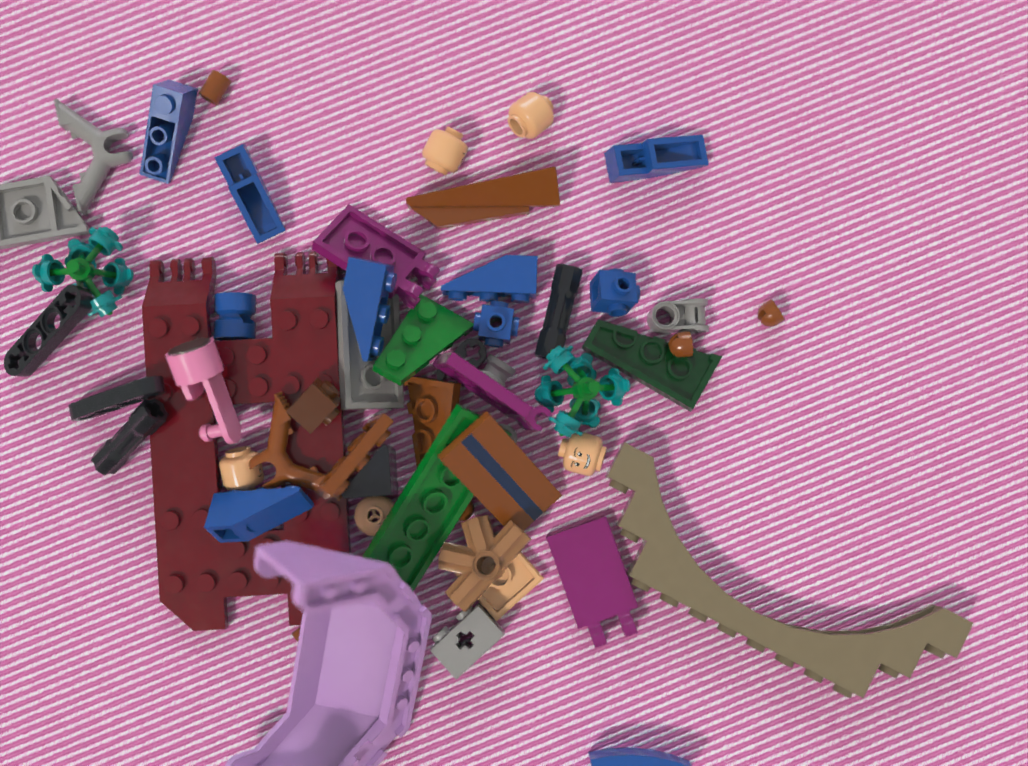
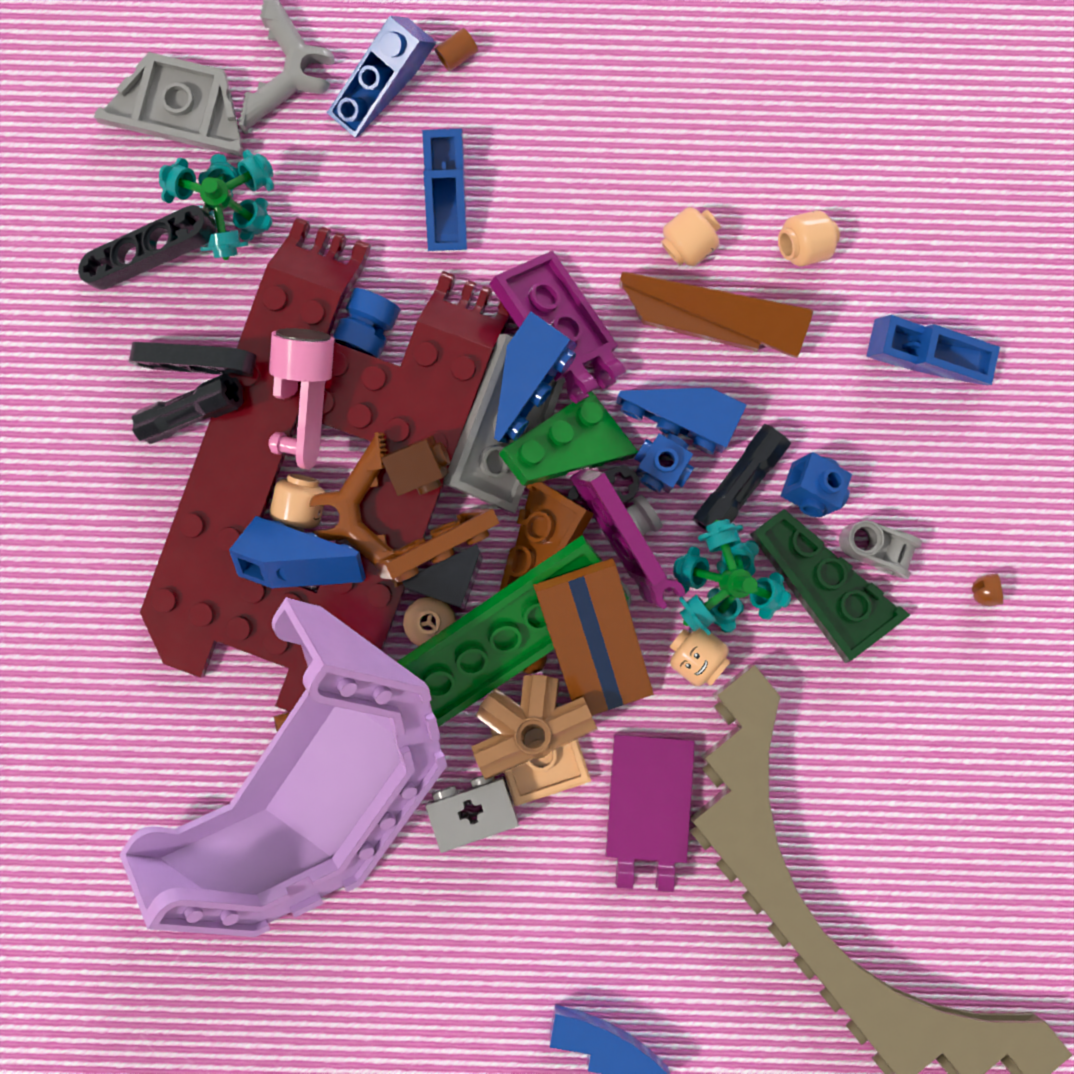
camera: 20 degrees right, 0 degrees up
(681, 344) = (870, 580): dark orange hinge -> none

